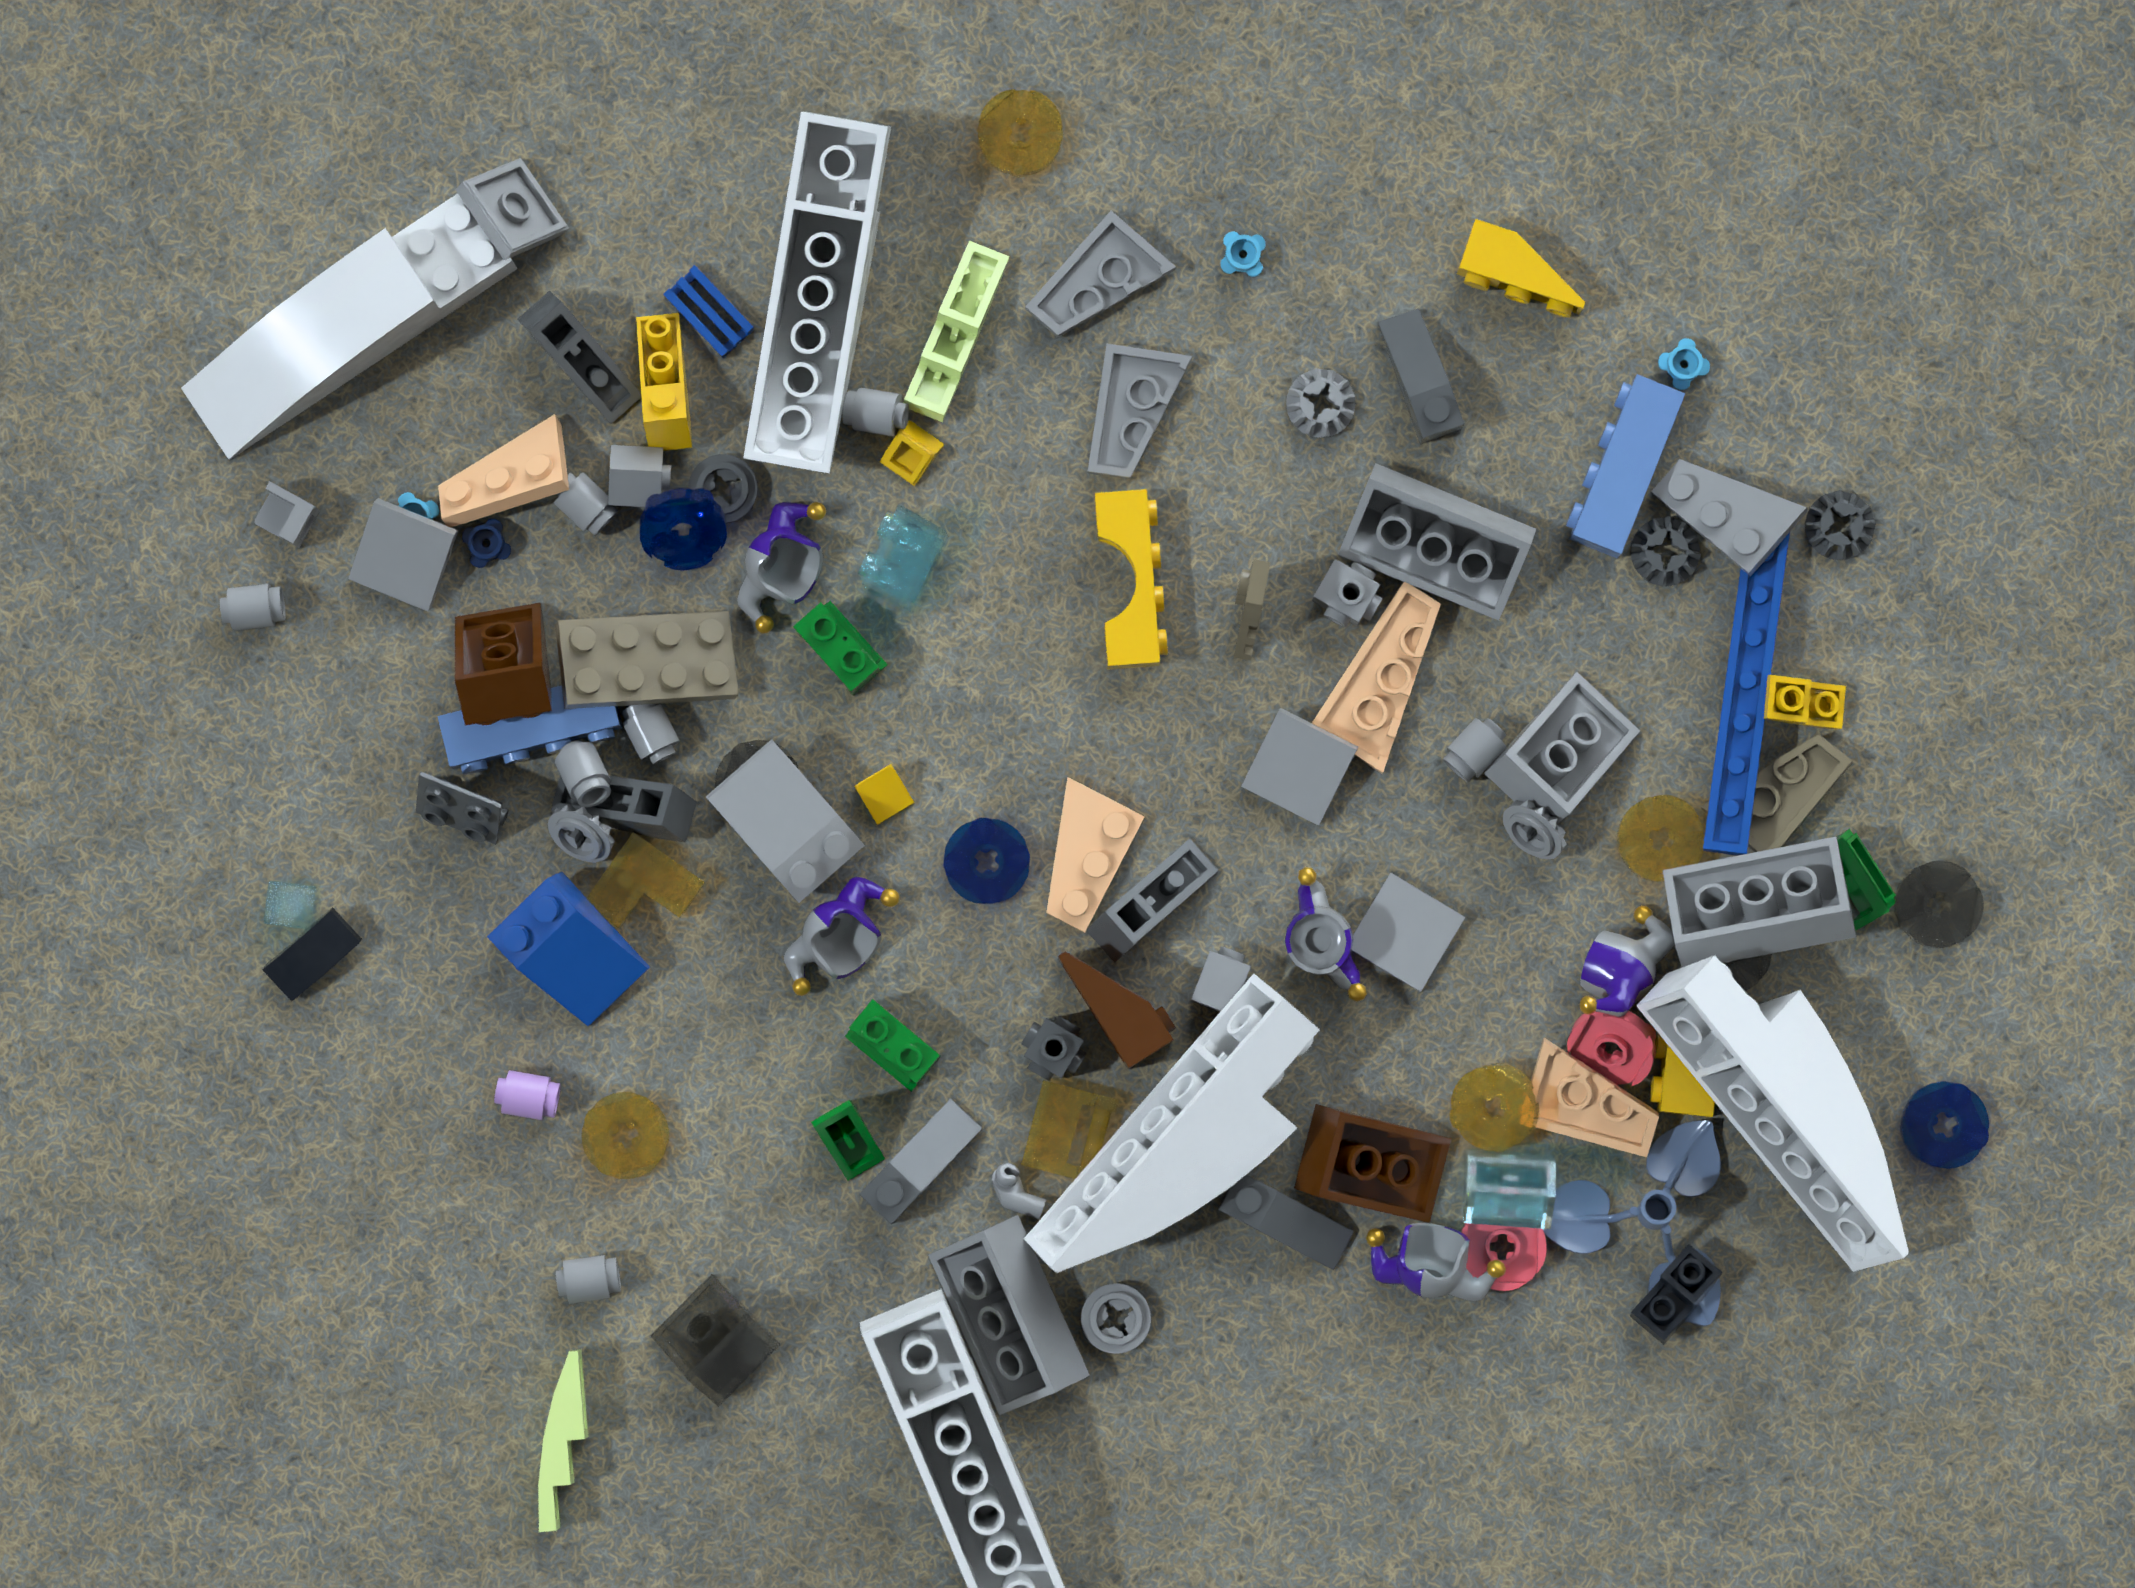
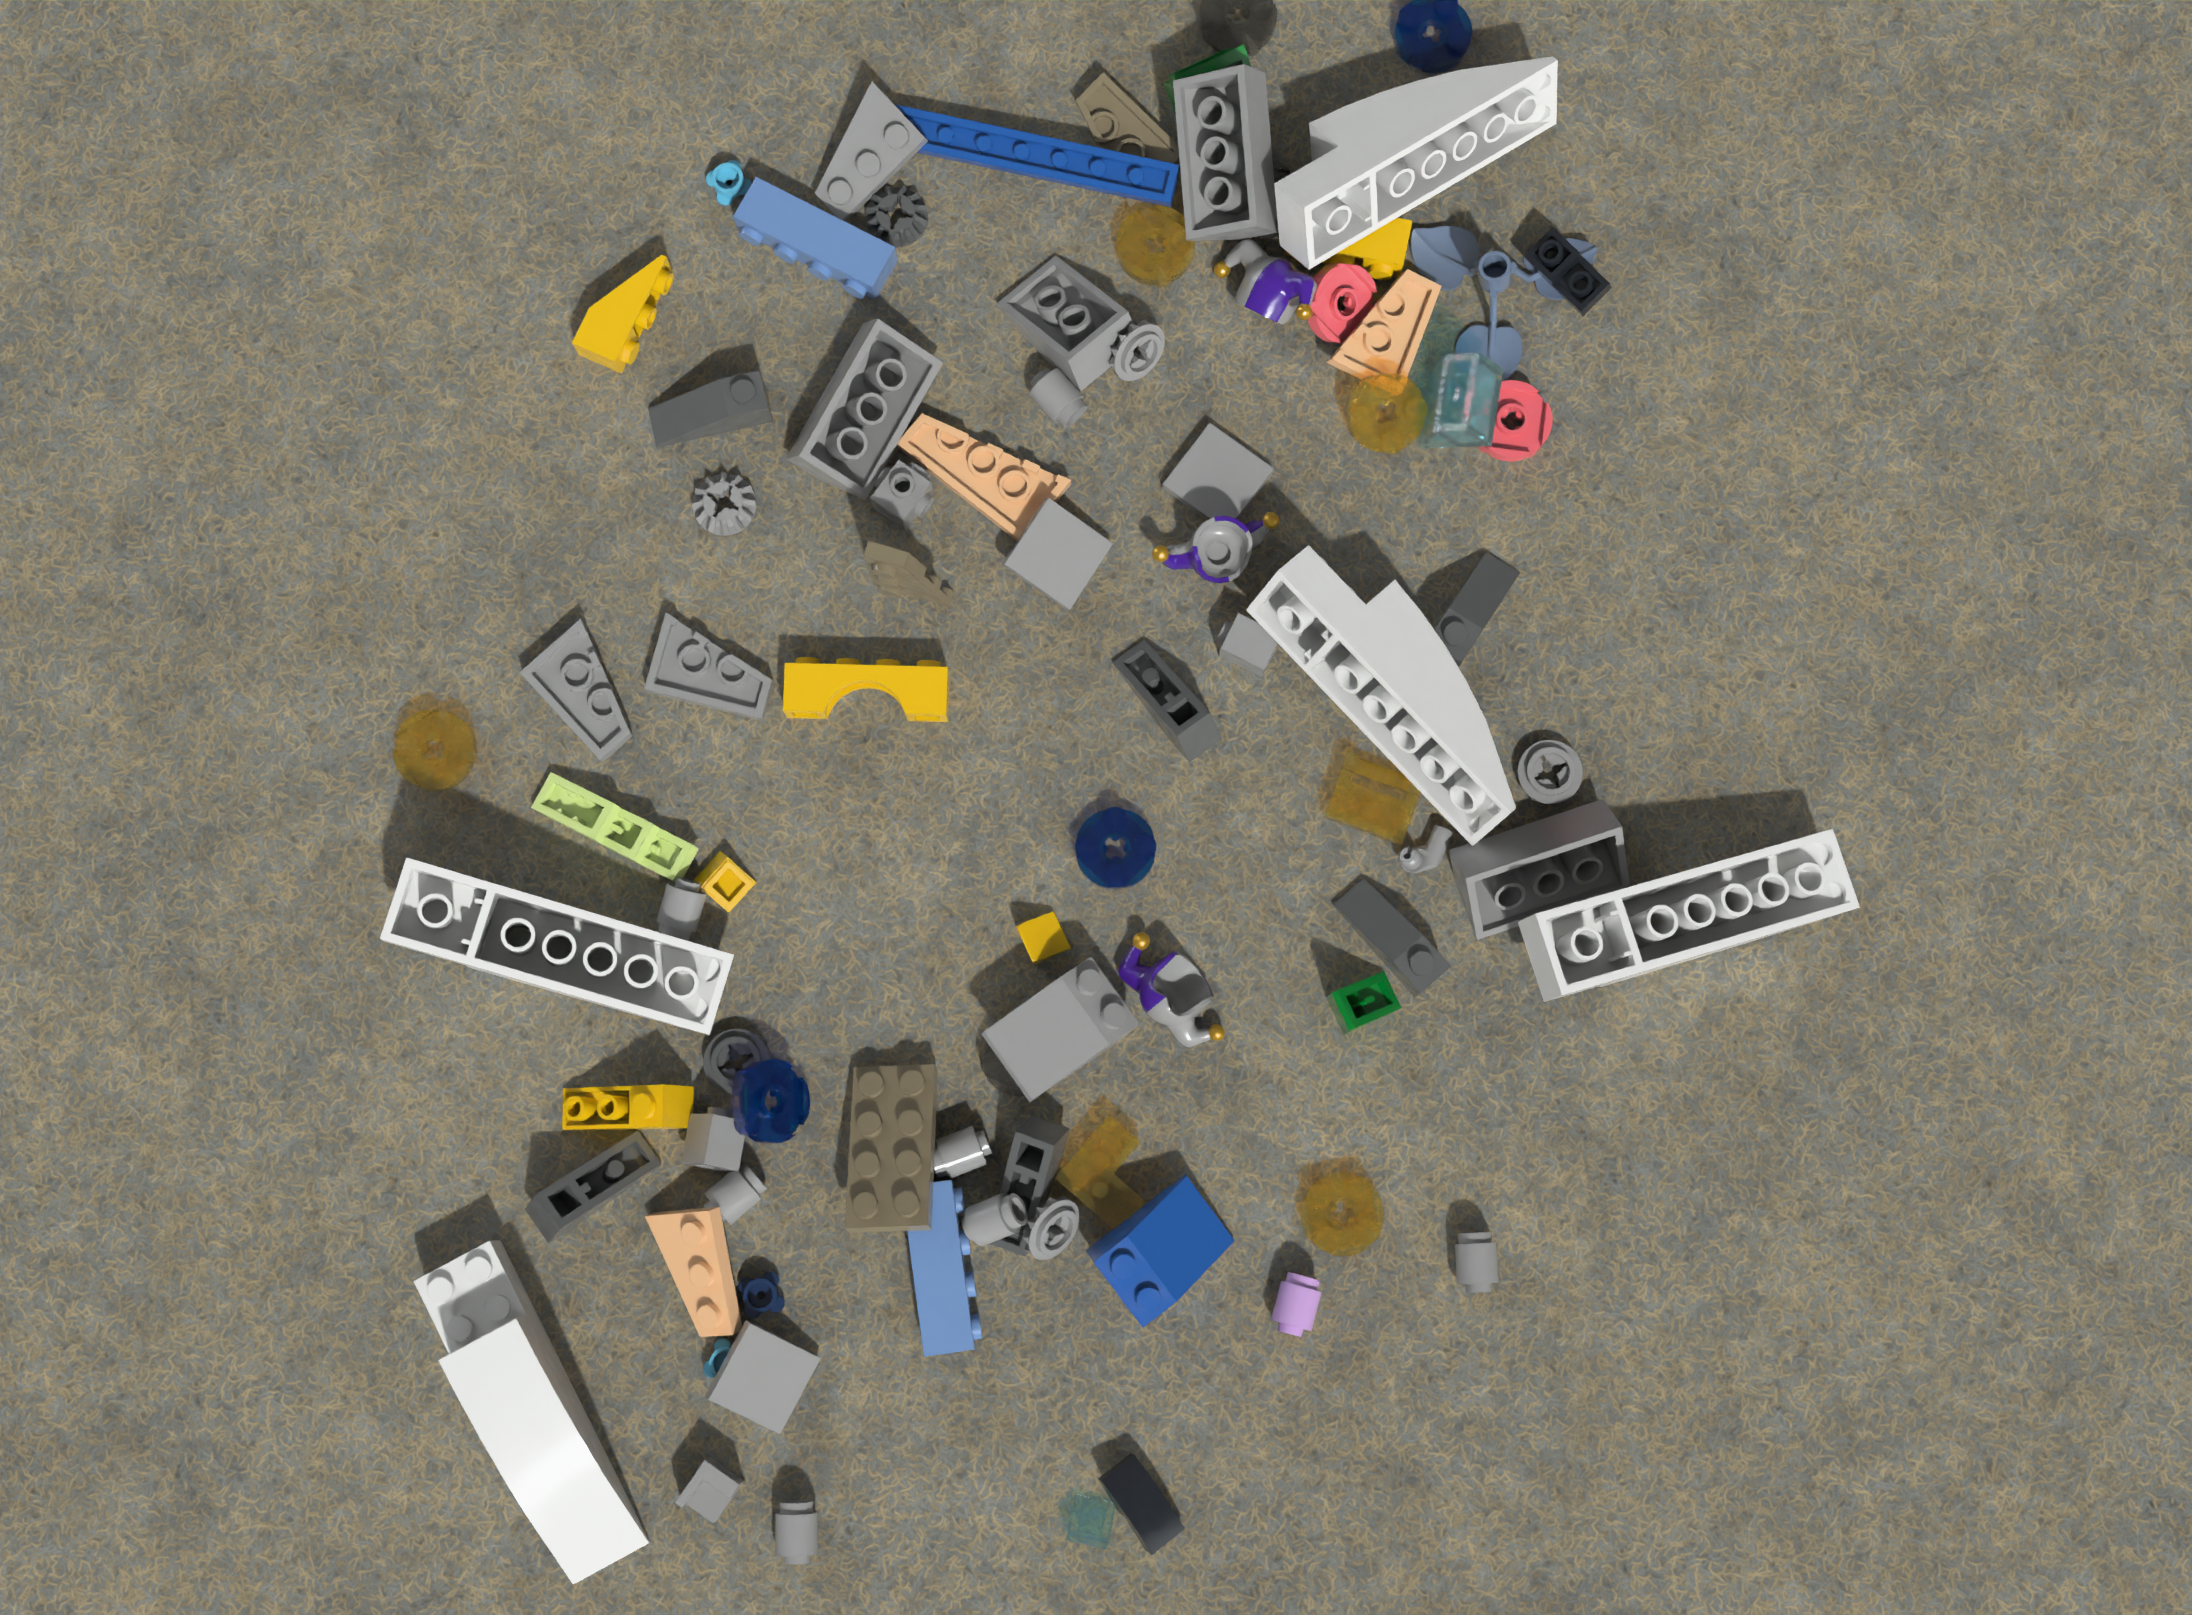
camera: 85 degrees left, 5 degrees down
(464, 810) = (1009, 1356): dark grey hinge -> none
(502, 664) = (881, 1288): reddish brown slope -> none
(512, 208) = (440, 1237): light grey tile -> none
(565, 1423) = (1616, 1298): yellowish green slope -> none
(683, 284) = (536, 1080): blue tile -> none
(715, 1340) = (1543, 1146): clear smoke slope -> none
(781, 562) = (813, 1012): light grey piece -> none
(840, 646) = (898, 963): green window -> none
(892, 1045) = (1280, 951): green window -> none
(903, 559) = (825, 894): clear light blue slope -> none
(1046, 1065) = (1294, 816): dark grey brick -> none
(1088, 852) = (1115, 753): light nougat wing -> none
(1125, 1017) = (1278, 730): reddish brown slope -> none
(1236, 243) = (567, 553): medium azure plate -> none
(1372, 1163) = (1426, 528): reddish brown slope -> none
(1431, 1263) = (1523, 480): light grey piece -> none
(1804, 702) = (1046, 106): yellow slope -> none
(1837, 545) = (908, 67): dark grey gear -> none

